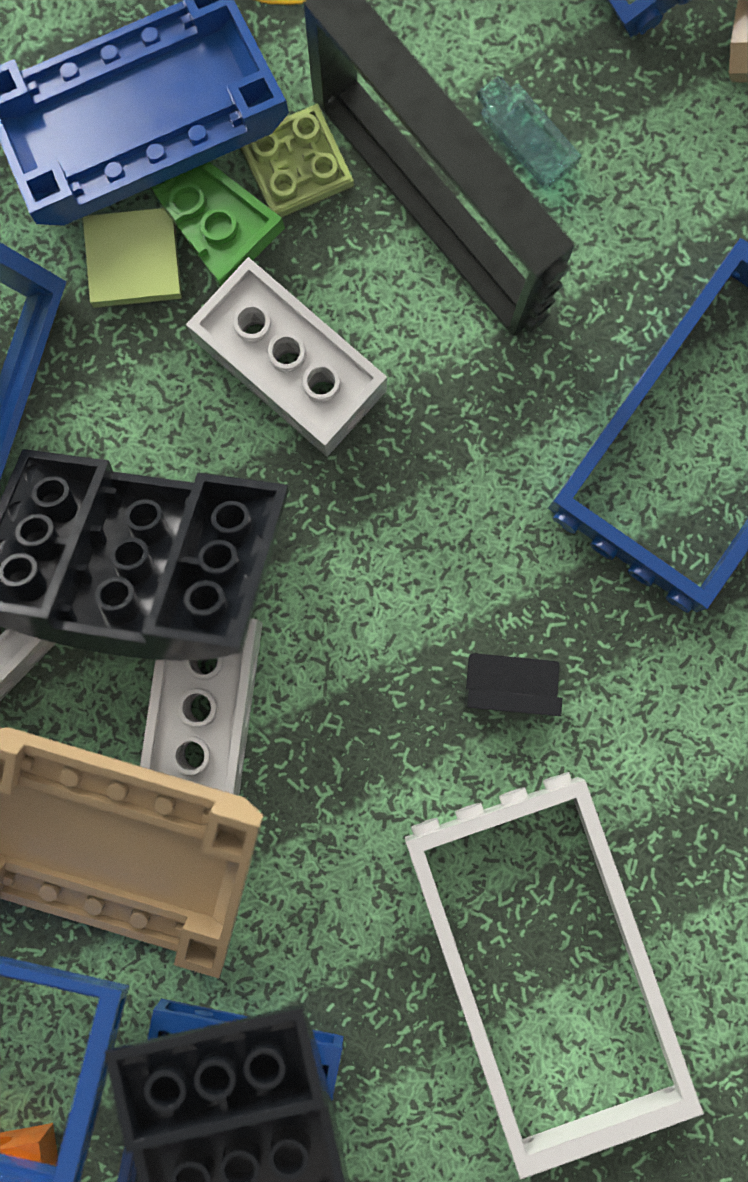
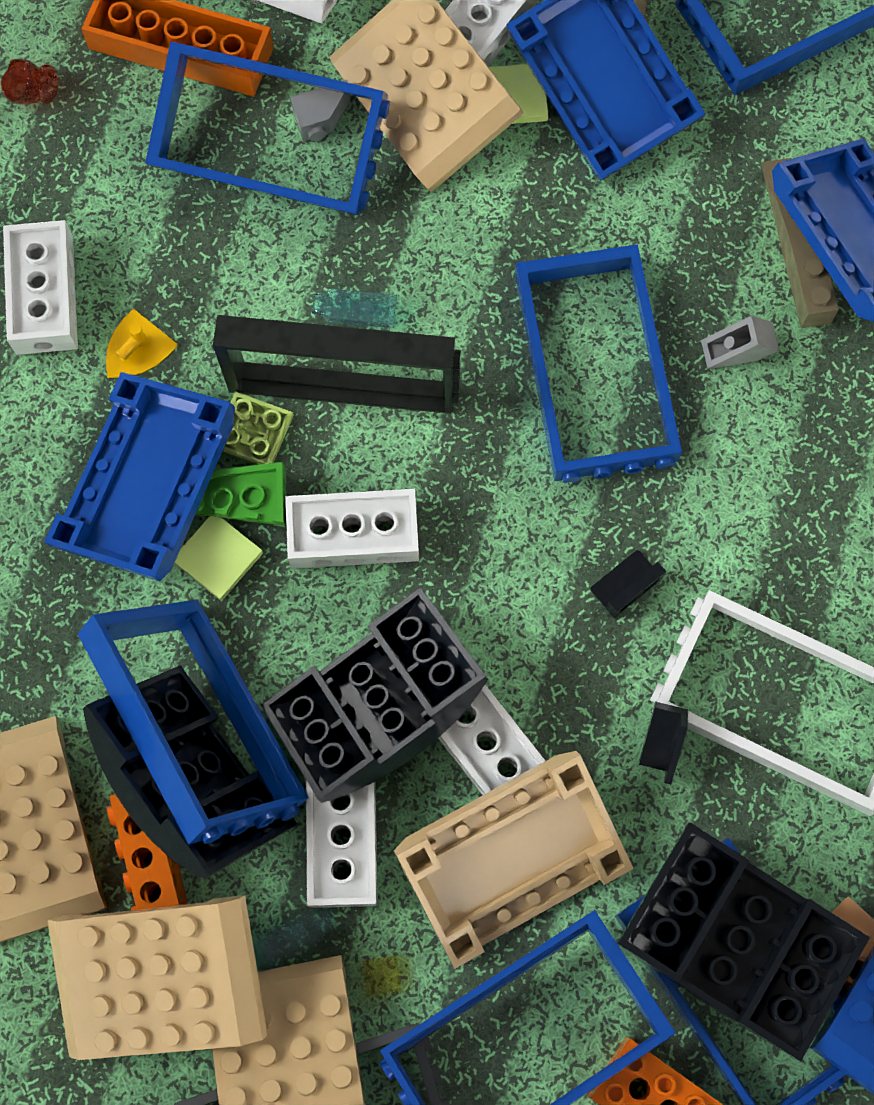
camera: 45 degrees left, 10 degrees down
(382, 885) = (664, 739): none -> black panel

